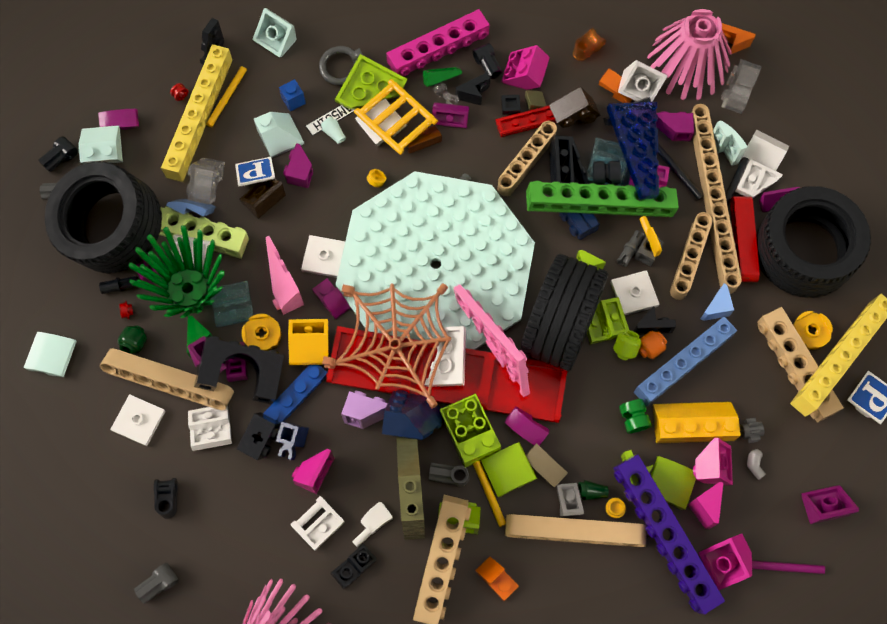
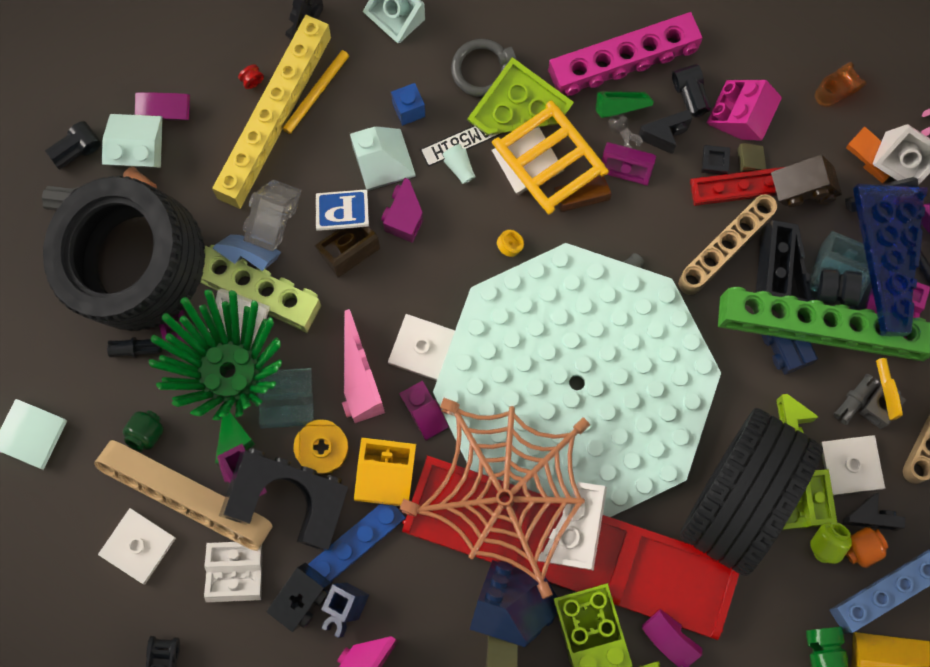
camera: 10 degrees right, 5 degrees up
(125, 310) = (139, 386): red plate -> none
(236, 376) = (281, 504): magenta slope -> none
(362, 410) = (446, 584): lavender slope -> none
(501, 346) = (655, 529): bright pink wing -> none

